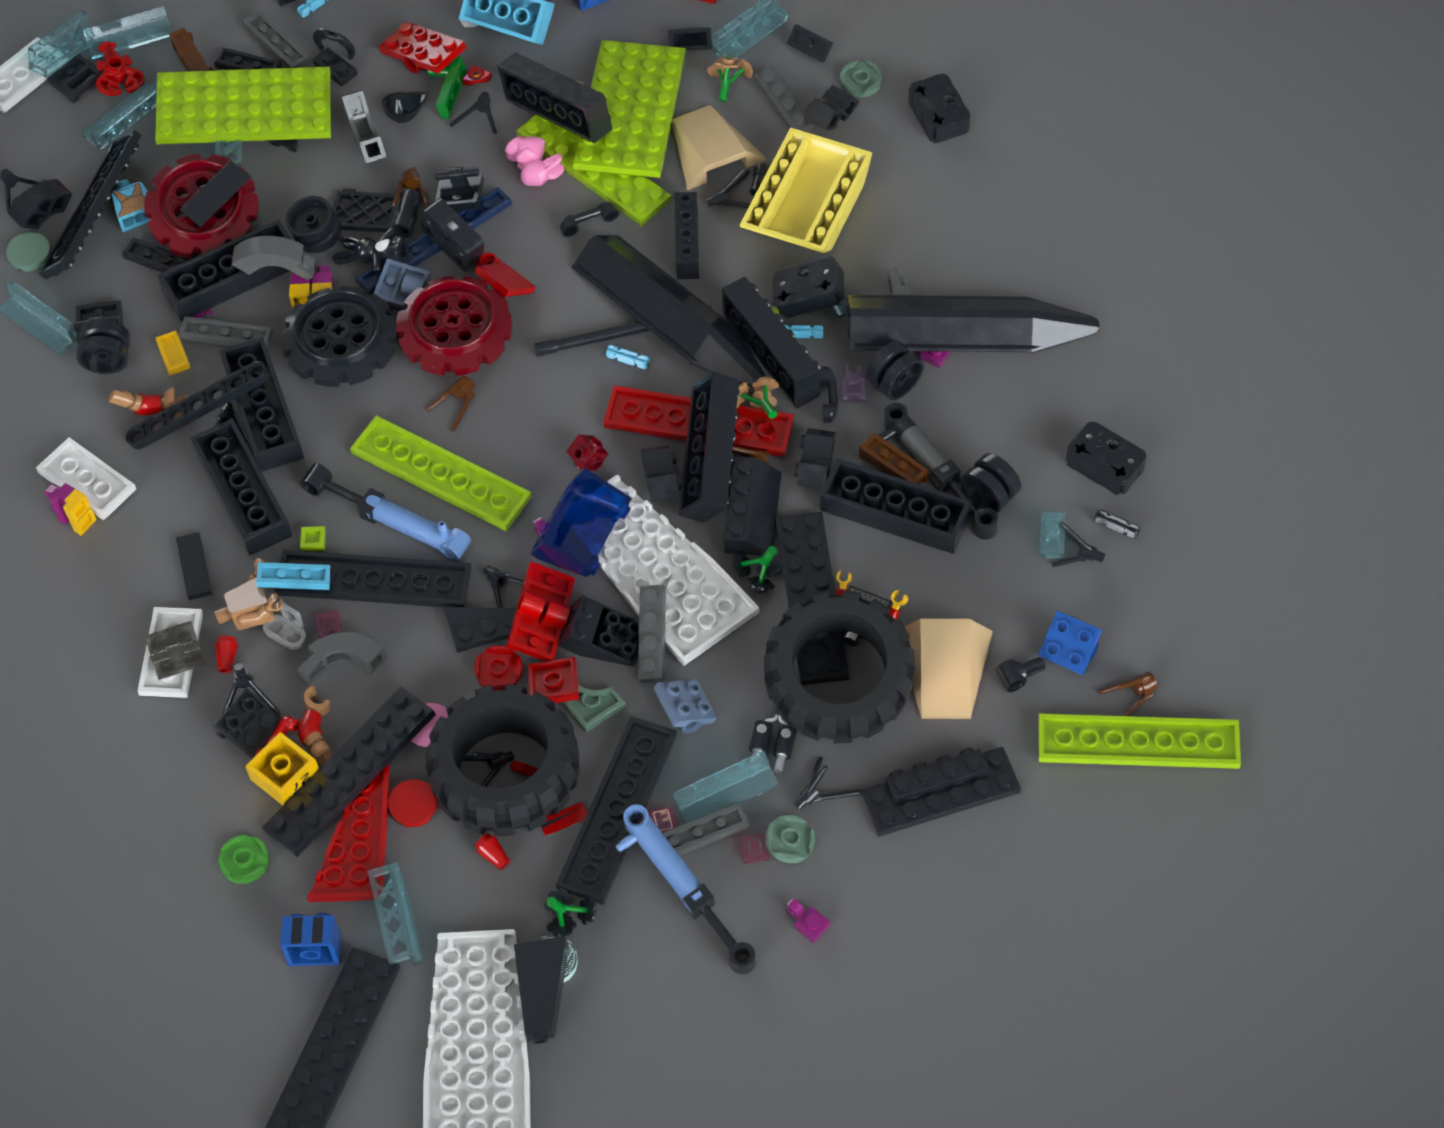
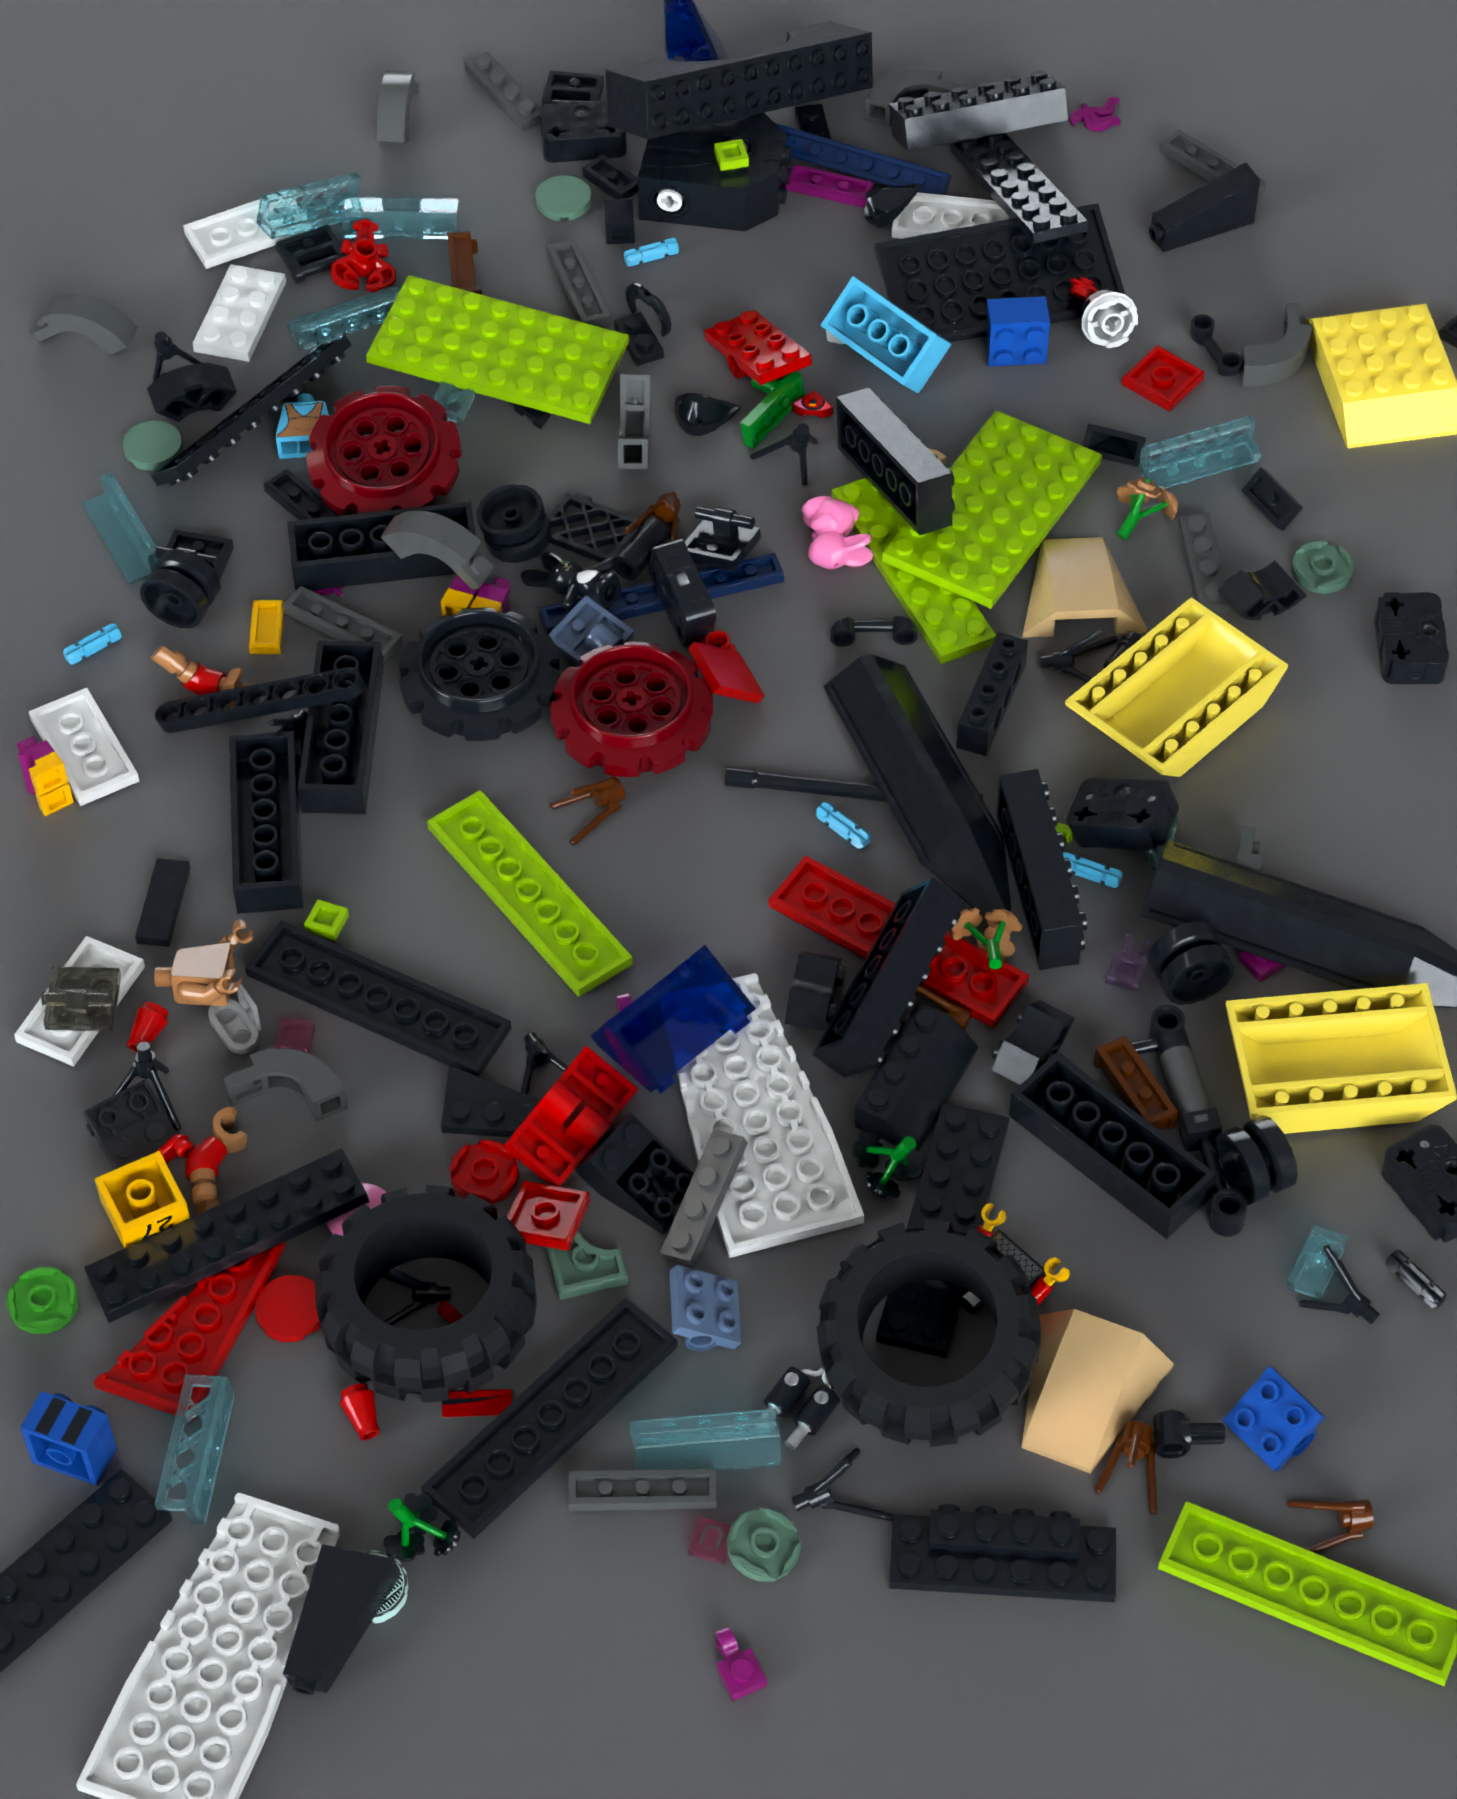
camera: 20 degrees right, 5 degrees down
(44, 137) = (239, 313): none -> white plate
(55, 405) = (92, 643): none -> medium azure axle
(215, 193) = (403, 442): black sticker -> none
(236, 60) = (517, 291): black tile -> none
(293, 576) = (273, 957): medium azure plate -> none
(375, 508) = (424, 909): medium blue piece -> none
(587, 452) = (729, 930): dark red brick -> none
(664, 819) = (604, 1454): clear pink tile -> none
(695, 896) = (588, 1546): medium blue piece -> none
(829, 410) = (1082, 988): black bar -> none
(994, 690) = (1135, 1444): none -> reddish brown plant
(1015, 398) = (1342, 1057): none -> light yellow slope

